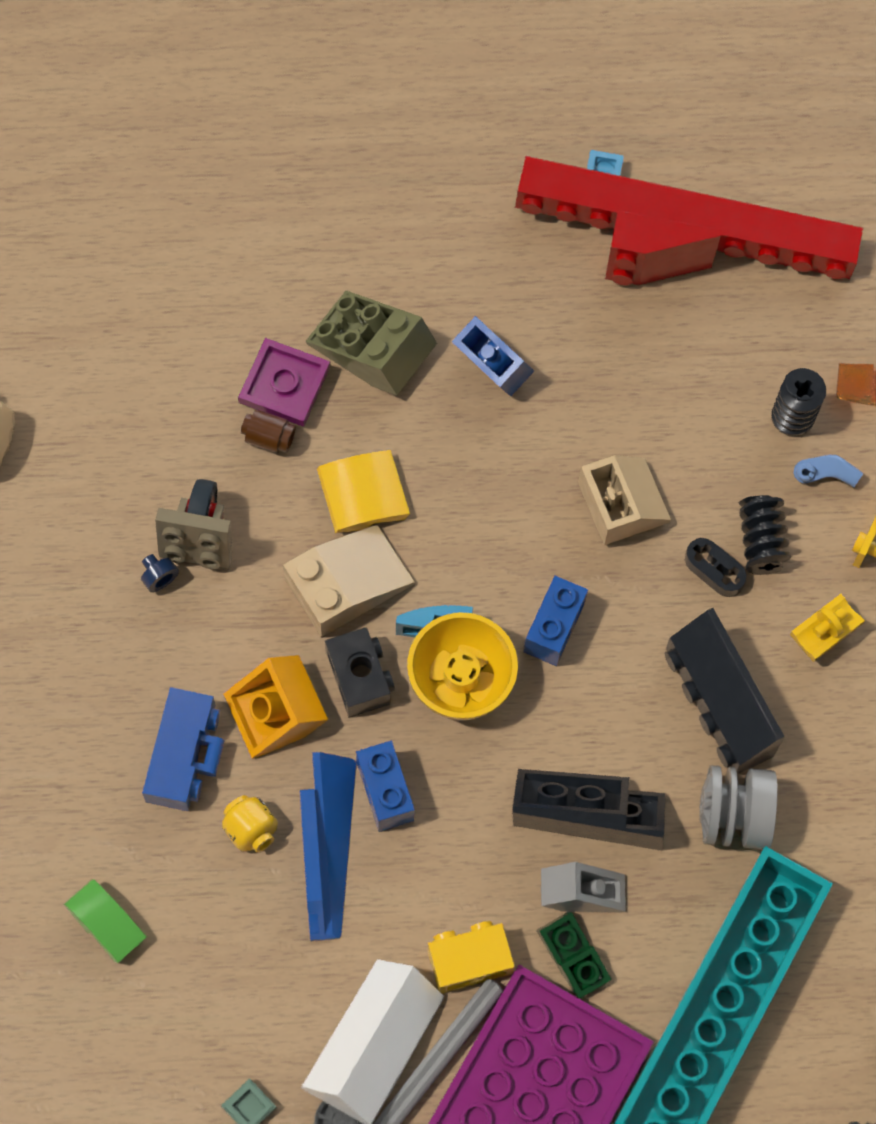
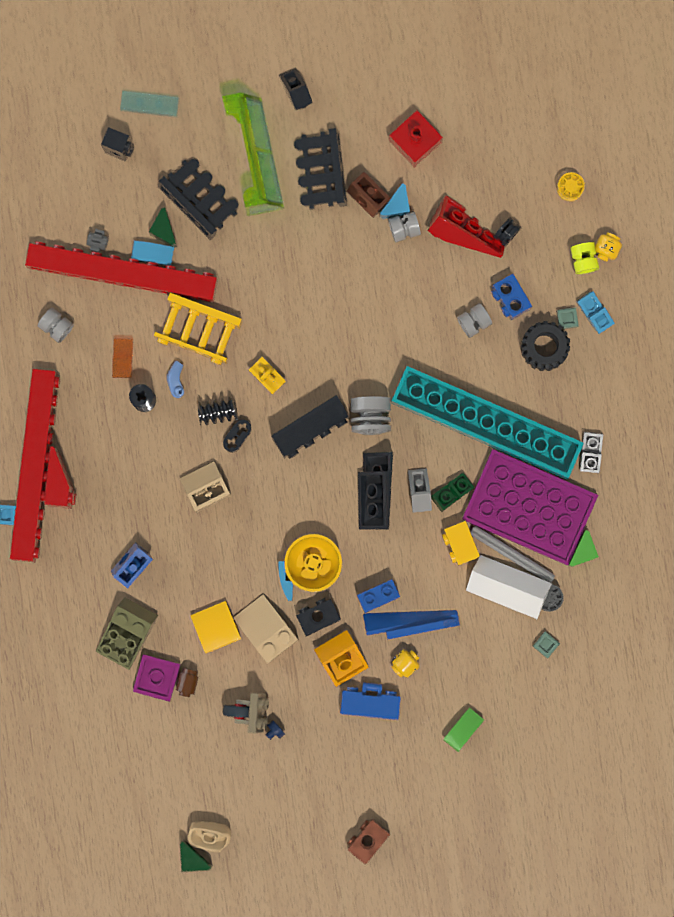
camera: 90 degrees left, 15 degrees up
(555, 620) = (278, 517): blue brick -> none

